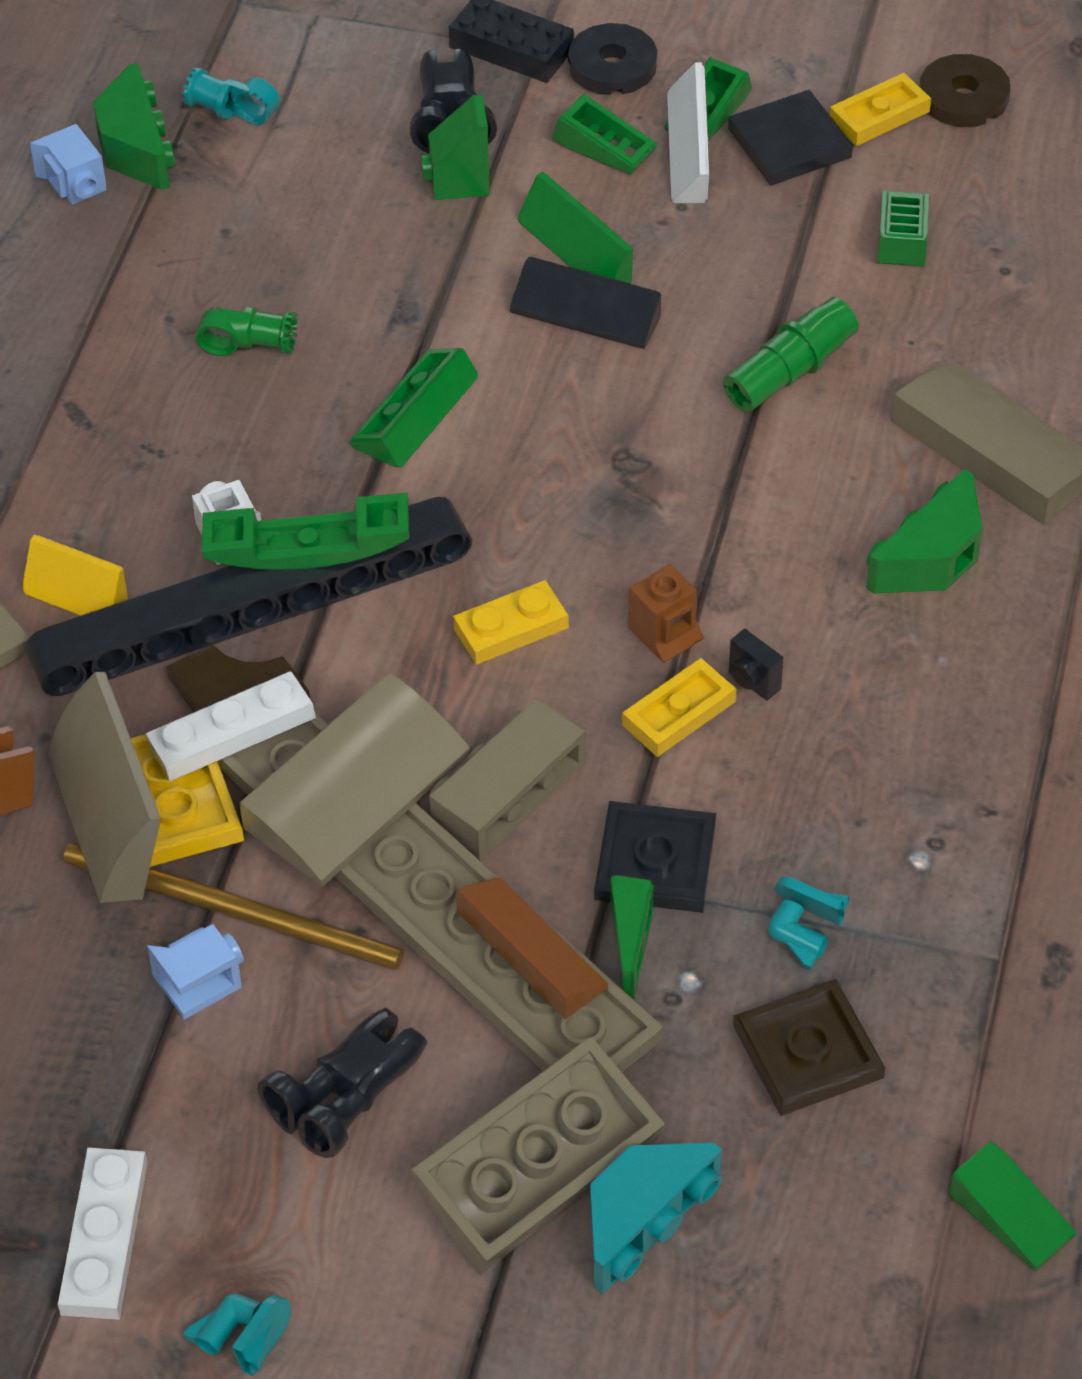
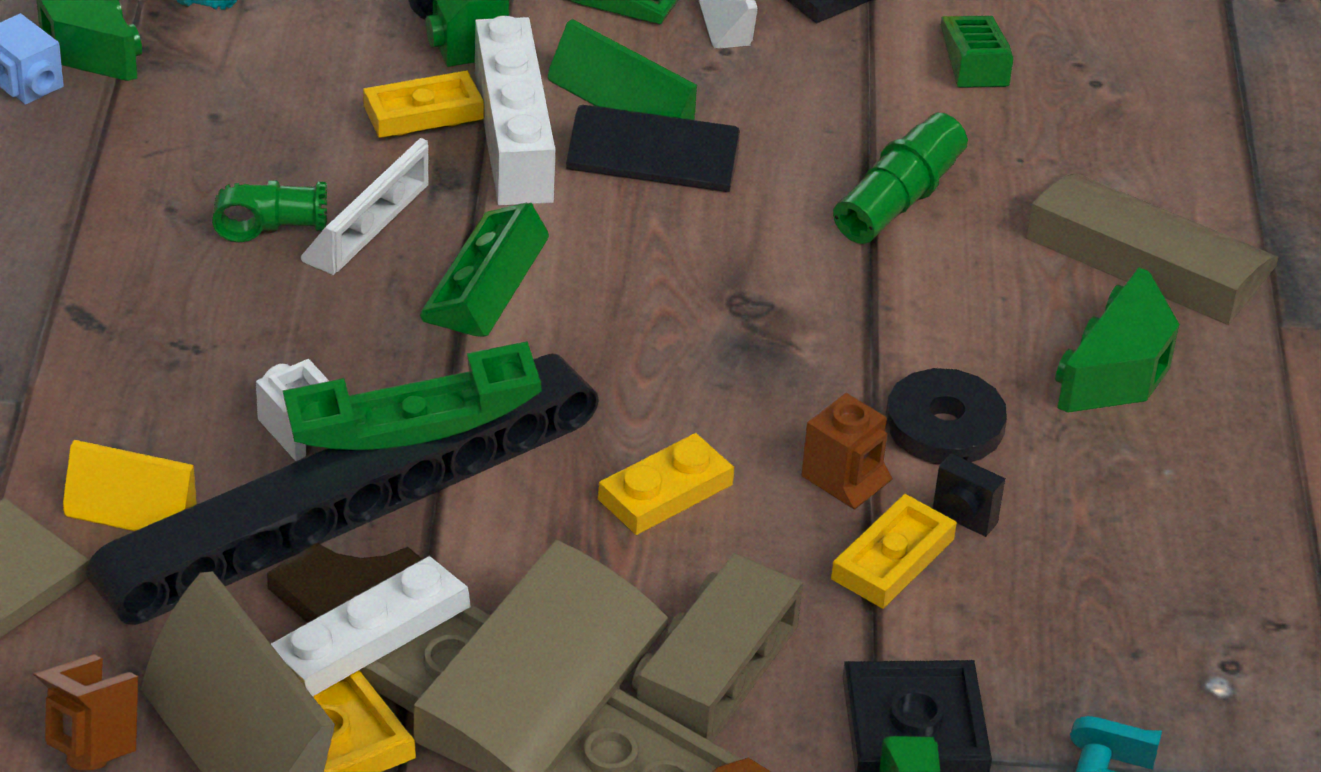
camera: 15 degrees left, 10 degrees down
(330, 340) = (370, 211): none -> white slope
(400, 239) = (423, 104): none -> yellow plate
(472, 255) = (514, 111): none -> white brick
(768, 564) = (952, 392): none -> black tile

